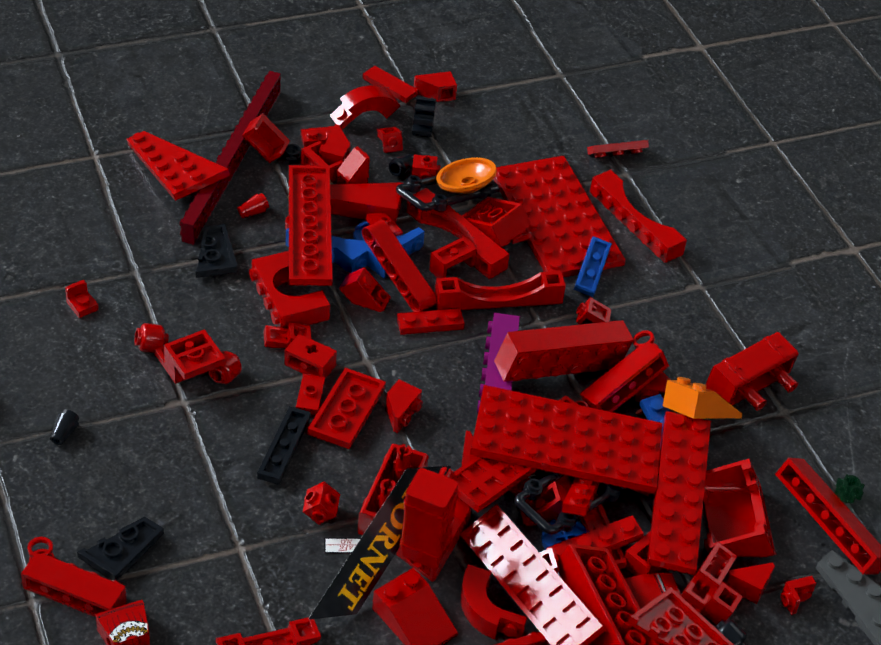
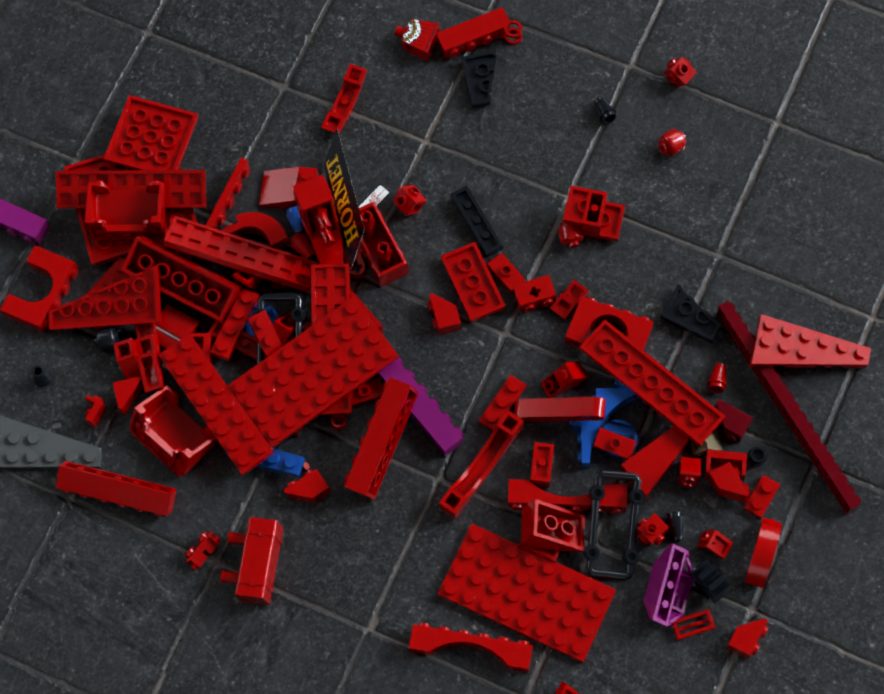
camera: 145 degrees right, 25 degrees up
(52, 355) = (672, 142): none -> red head
(80, 299) = (714, 198): red bracket -> none
(150, 337) = (637, 211): red head -> none
(266, 138) = (780, 437): red panel -> none
(279, 177) = (735, 422): none -> dark red slope
(395, 86) = (785, 607): red tile -> none
(441, 581) = (294, 220): none -> blue cone
(458, 139) = (669, 586): none -> magenta wedge
(459, 559) = (301, 245): none -> red cone
(462, 120) = (695, 632): none -> red tile
(466, 175) = (615, 531): orange dish -> none
(592, 266) = (449, 557): blue tile -> none
(593, 311) = (408, 516): red bracket -> none
(627, 376) = (326, 464): red hinge -> none
(696, 400) = (261, 487): orange slope -> none
(792, 426) = (196, 554): none -> red hinge
(849, 489) = (119, 524): clear green gear -> none

